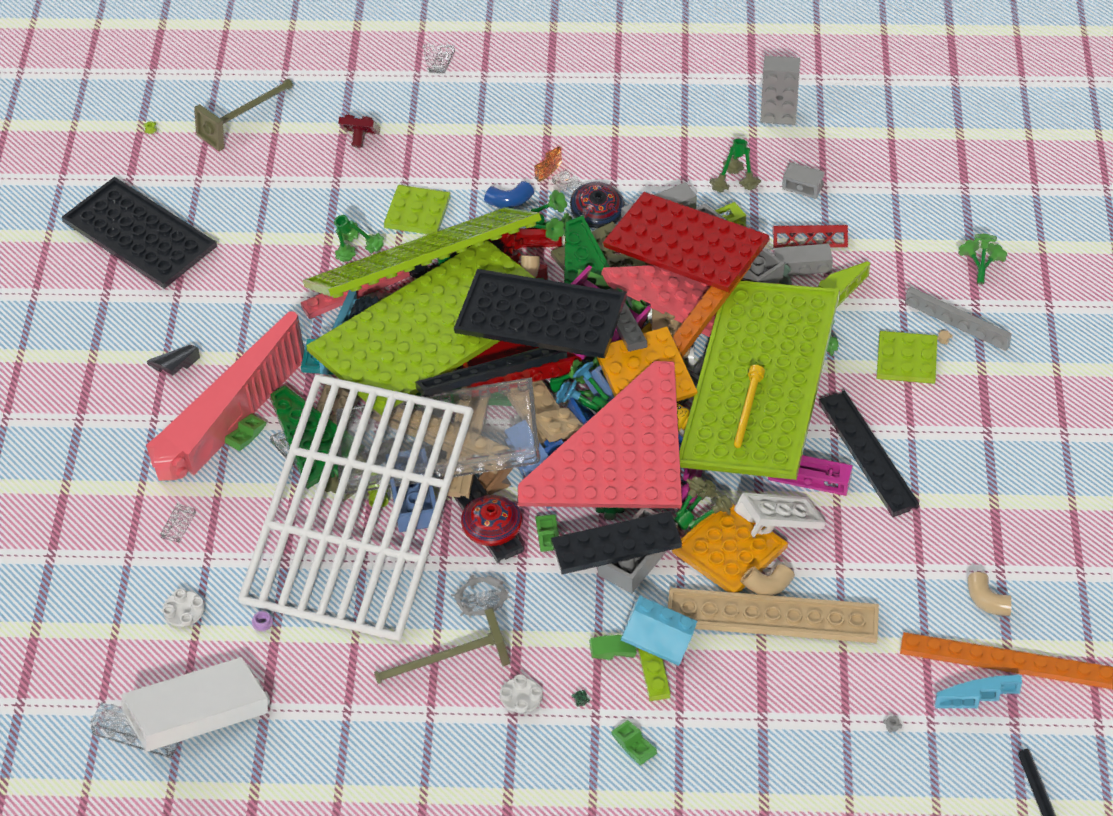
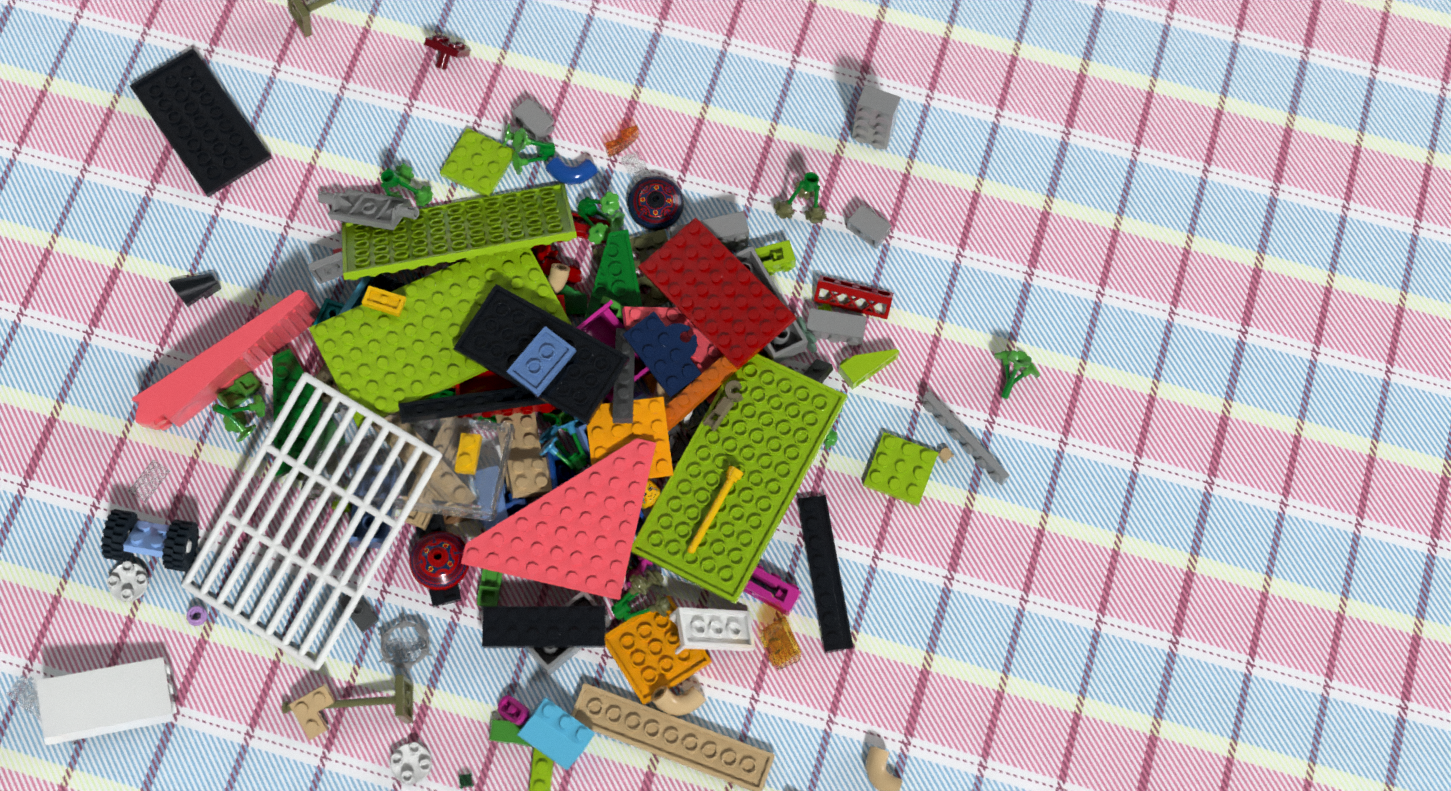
camera: 10 degrees right, 20 degrees up
(169, 562) = (171, 542): none -> black plate
(251, 455) = (235, 418): none -> bright green plant
(308, 308) = (327, 268): none -> light grey tile
(326, 259) = (368, 208): none -> light grey plate
(373, 306) = (384, 301): none -> yellow plate
(402, 668) = (307, 710): none -> tan plate
(428, 586) = (362, 615): none -> dark grey plate
(459, 166) = (533, 120): none -> light grey brick
(478, 184) = (520, 140): none -> bright green plant
(496, 409) = (468, 453): none -> yellow plate
(544, 313) = (541, 361): none -> medium blue plate
(609, 624) = (513, 710): none -> dark pink plate
(654, 296) = (664, 352): none -> dark blue plate
(731, 315) = (724, 405): none -> dark tan piece
(850, 511) = (781, 644): none -> clear yellow slope

